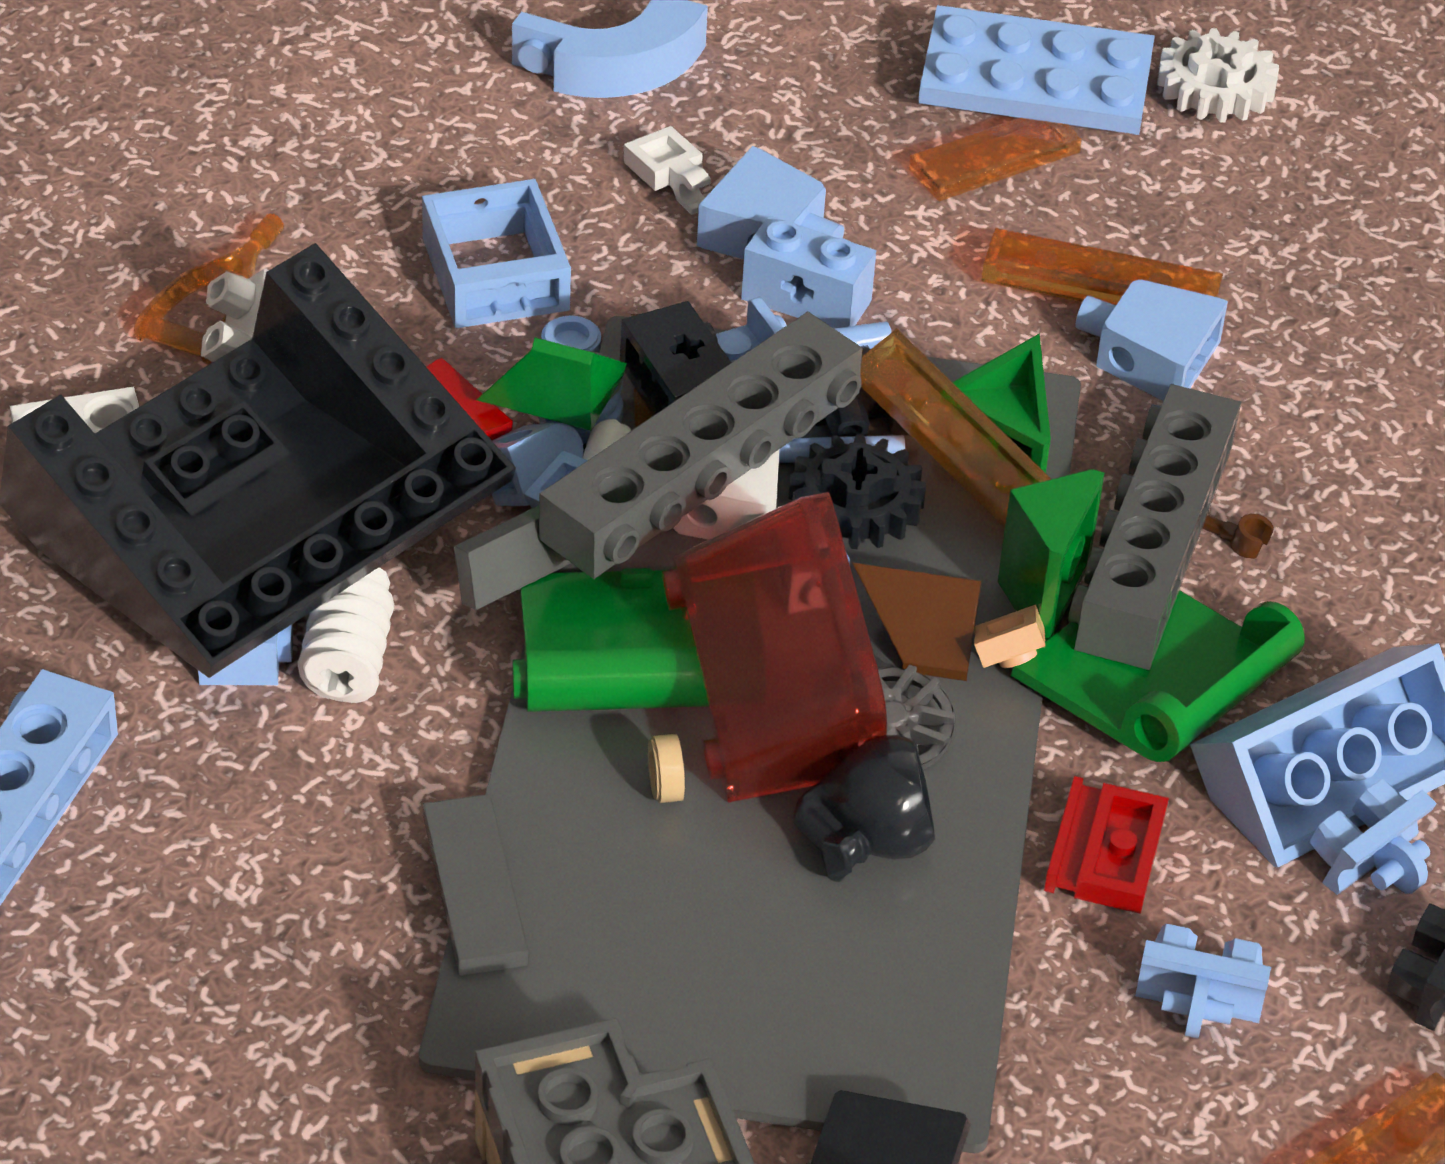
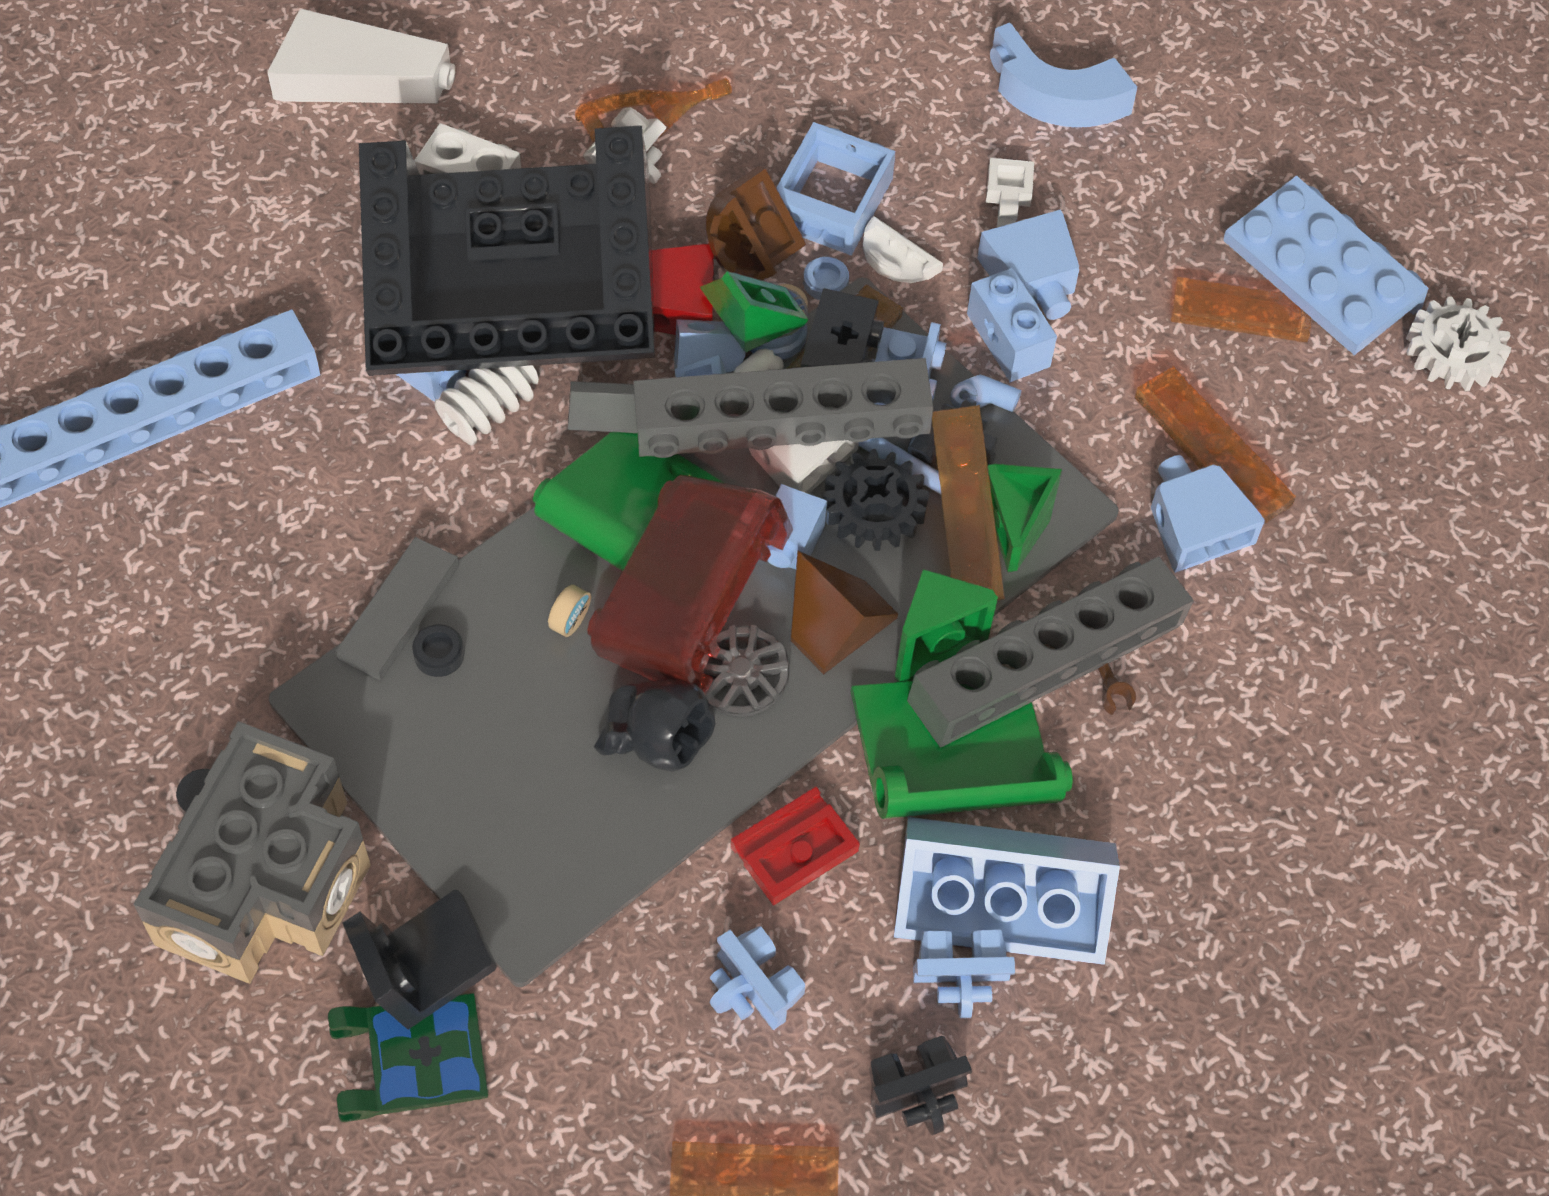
camera: 40 degrees right, 15 degrees up
(464, 318) = (751, 227): none -> reddish brown slope
(562, 896) = (438, 650): none -> black tile
(620, 284) = (897, 256): none -> white tile
(1010, 638) = (862, 665): light nougat plate -> none

